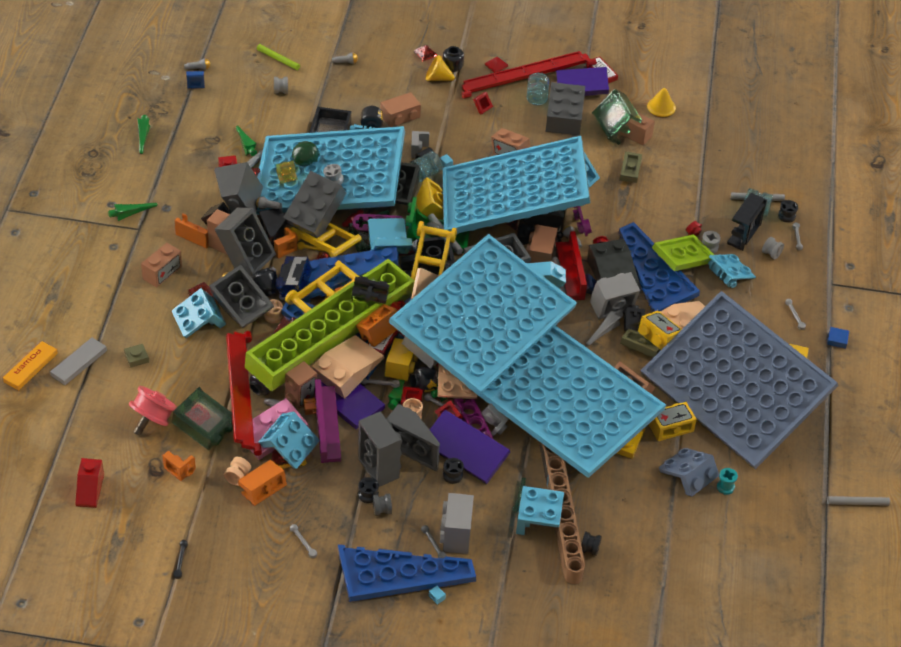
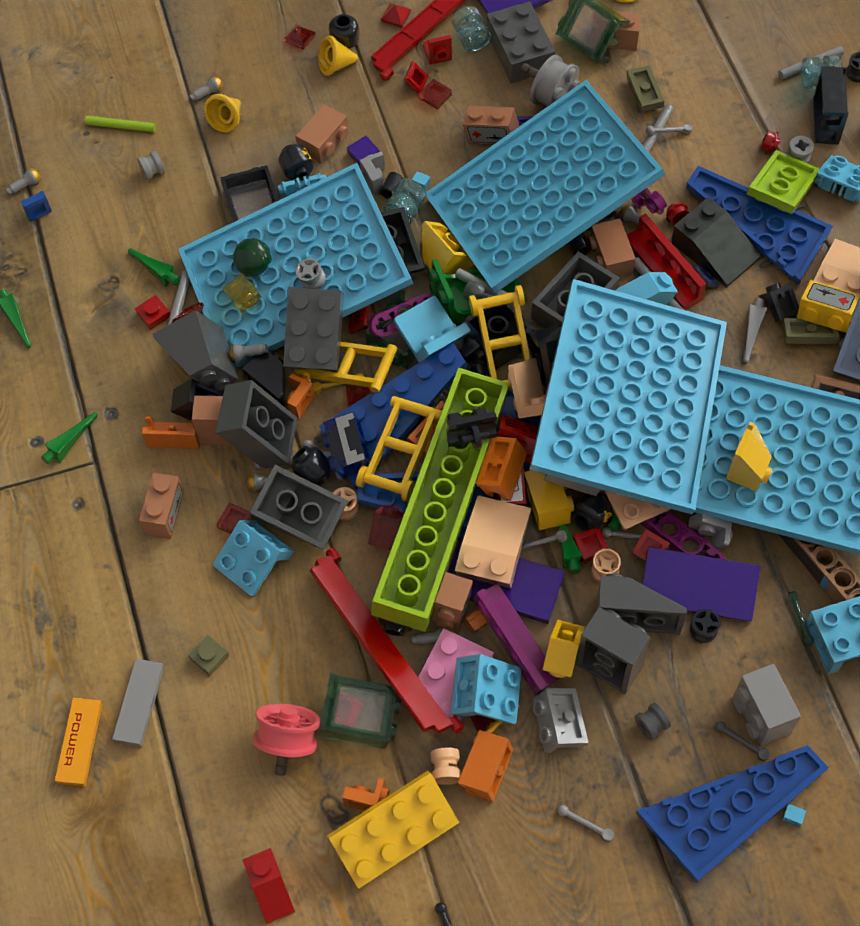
camera: 20 degrees left, 15 degrees up
(182, 487) = (393, 829): none -> yellow plate
(326, 478) = (559, 719): none -> light grey bracket
(345, 73) = (222, 112): none -> yellow hat
(346, 437) = (563, 649): none -> yellow brick
(367, 488) = (624, 702): black wheel -> none
(421, 127) = (361, 149): none -> dark purple tile
(490, 117) = (435, 94): none -> clear red tile
(509, 92) = (438, 49): none -> red bracket
(535, 379) = (750, 460): none -> yellow slope
(567, 129) = (551, 80): none -> light grey wheel
(614, 294) = (746, 281): light grey brick -> none
(616, 190) = (650, 130): none -> light grey hinge
(619, 195) = (660, 123): none -> light grey bar

